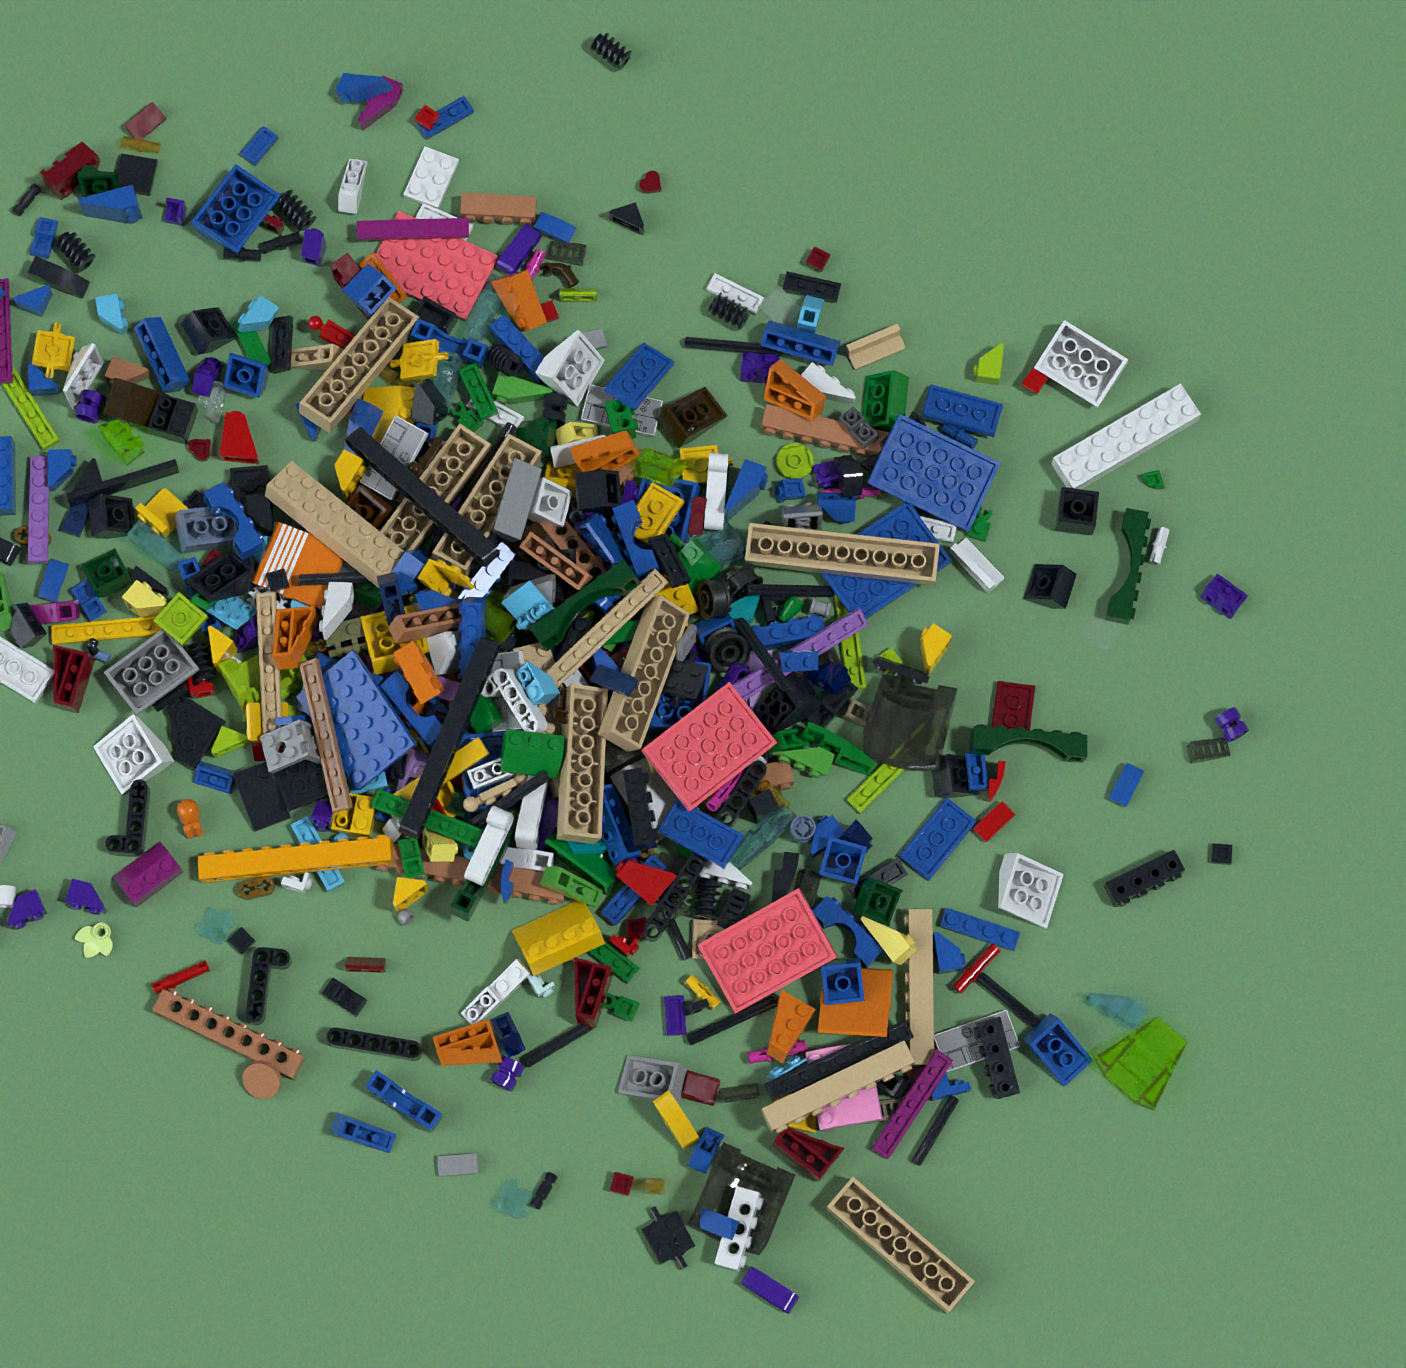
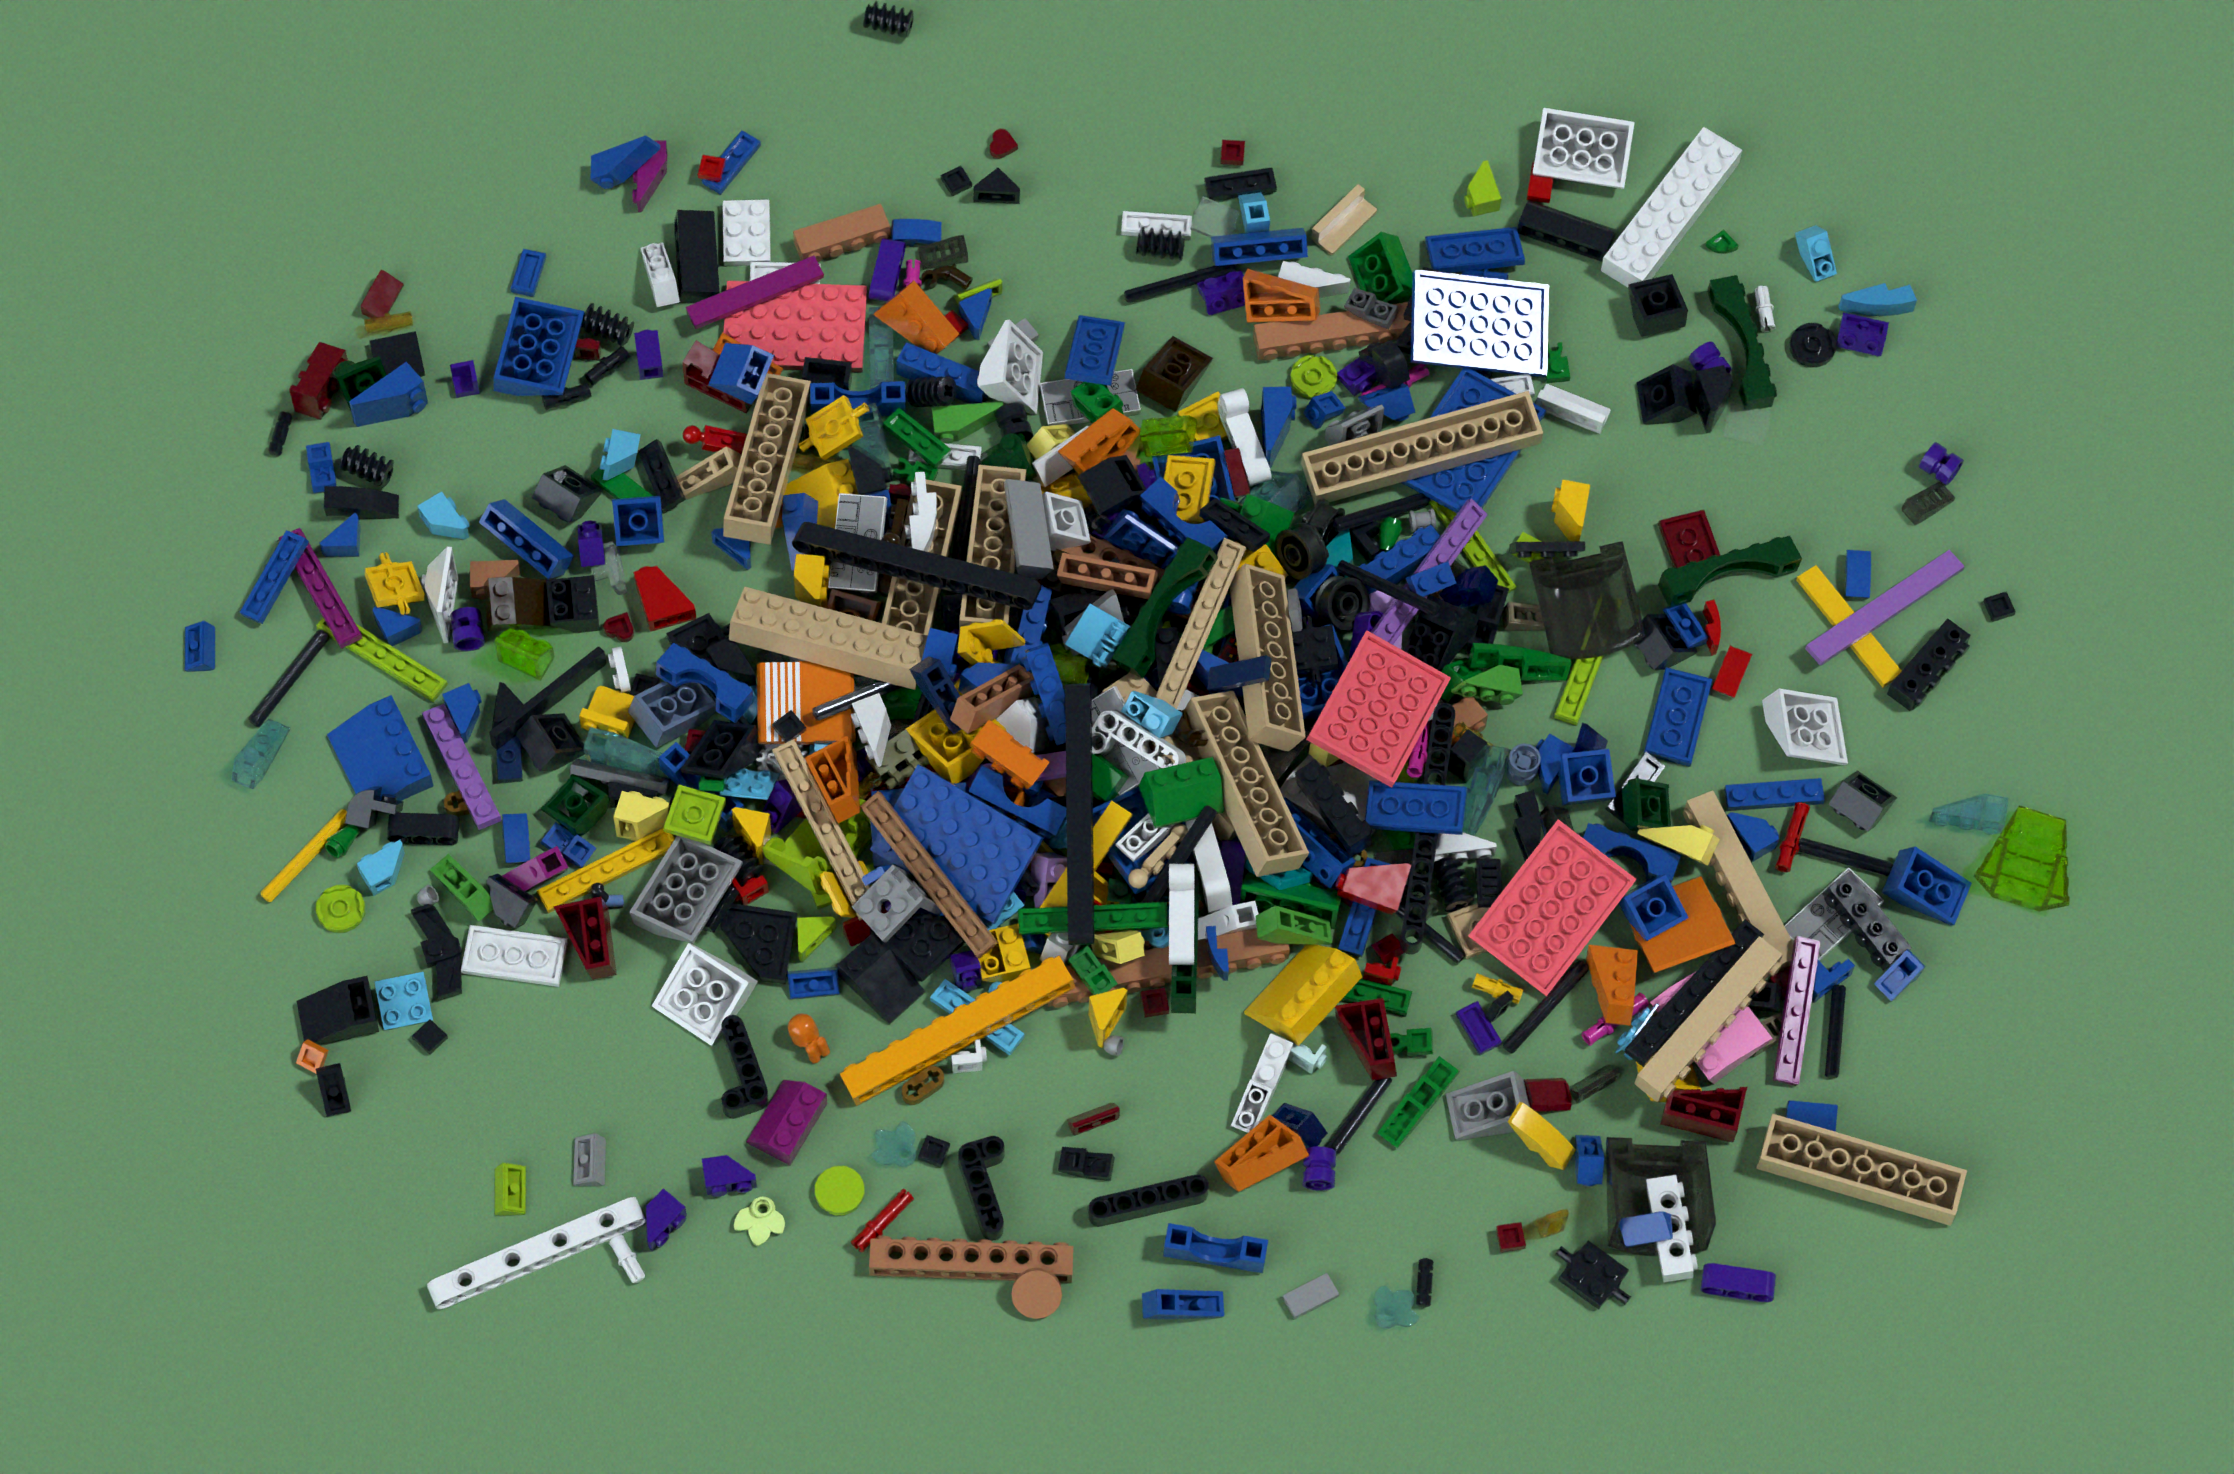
camera: 25 degrees left, 10 degrees down
(147, 563) = (606, 773): none -> dark grey plate
(161, 941) = (839, 1190): none -> lime tile
(183, 488) = (621, 679): none -> white plate
(385, 182) = (696, 255): none -> black brick
(445, 466) = (923, 521): none -> white slope
(446, 428) = (899, 491): none -> dark red plate
(447, 895) = (1154, 1002): none -> dark red plate
(569, 308) = (975, 311): none -> blue slope
(603, 198) = (956, 180): none -> black tile
(604, 1053) = (1418, 1102): none -> green slope
(885, 1188) = (1813, 1113): none -> blue slope
(1001, 1109) = (1900, 975): none -> blue slope
(1039, 421) = (1565, 230): none -> black brick
(1042, 962) = (1862, 801): none -> black slope
(1084, 598) = (1711, 394): none -> black slope
(1095, 574) = (1707, 357): none -> dark purple wheel
(1100, 822) = (1836, 610): none -> yellow tile
(1133, 819) = (1884, 607): none -> medium lavender tile
(1182, 589) = (1812, 345): none -> black tile
(1220, 517) = (1816, 252): none -> medium azure slope
(1248, 575) = (1879, 301): none -> dark azure slope

